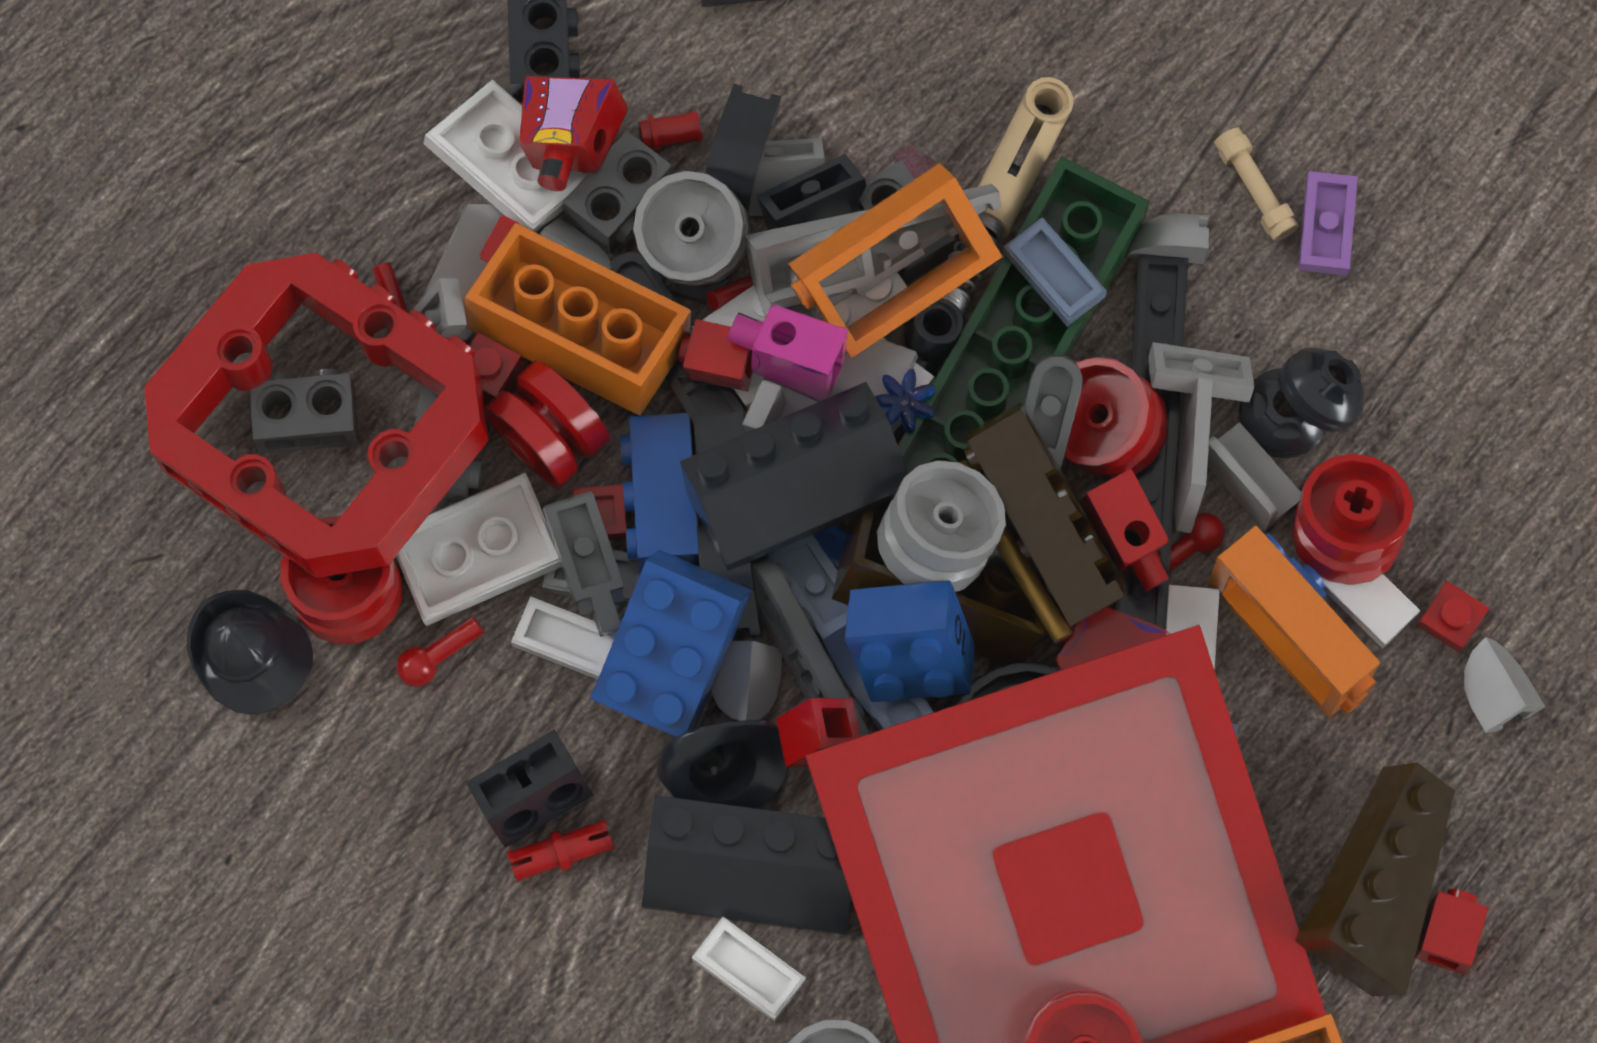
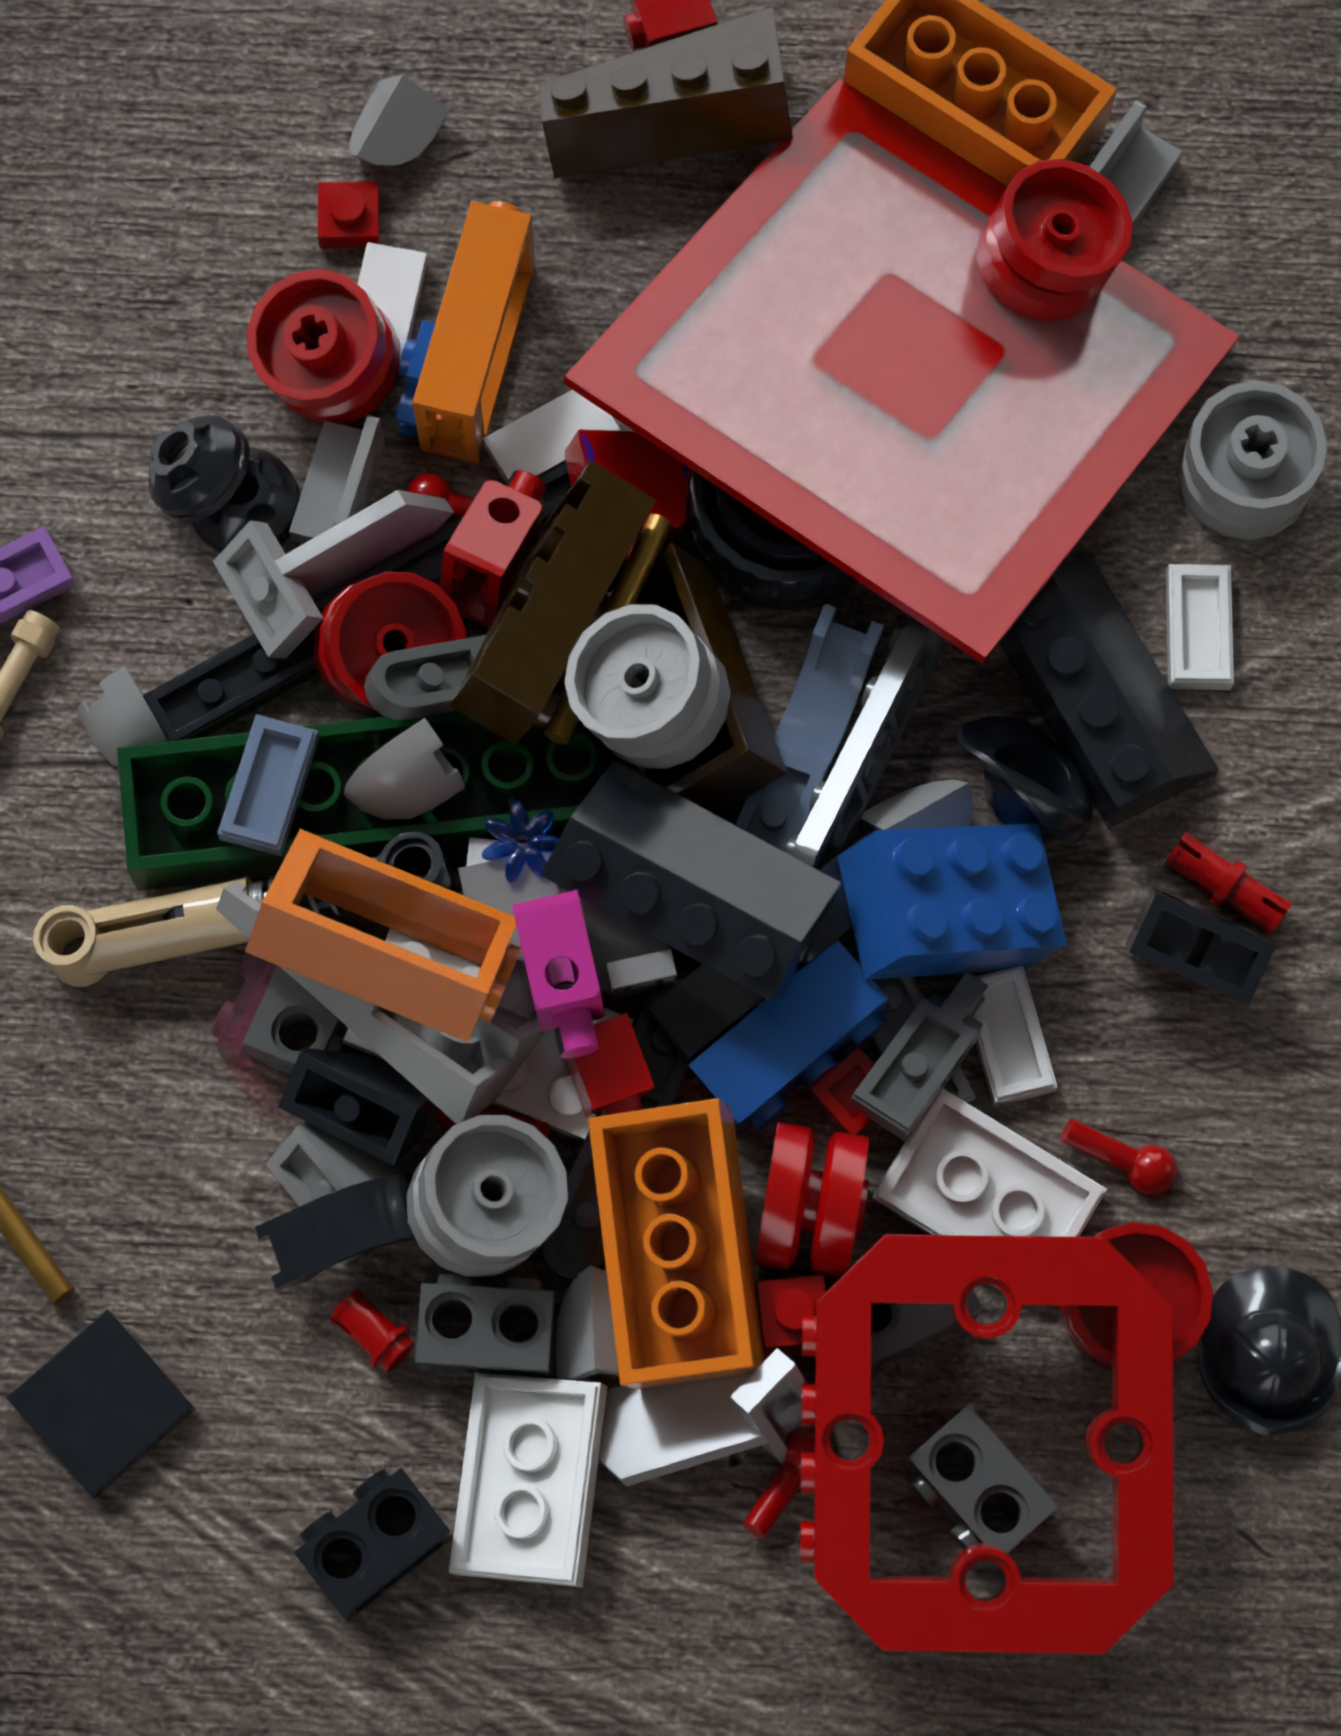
camera: 125 degrees left, 0 degrees up
(496, 237) = (630, 1402): red tile -> none
(568, 125) = (460, 1423): red torso -> none
(816, 726) = (936, 686): red brick -> none
(910, 641) = (781, 655): blue brick -> none
(996, 357) = (405, 776): none -> light grey brick

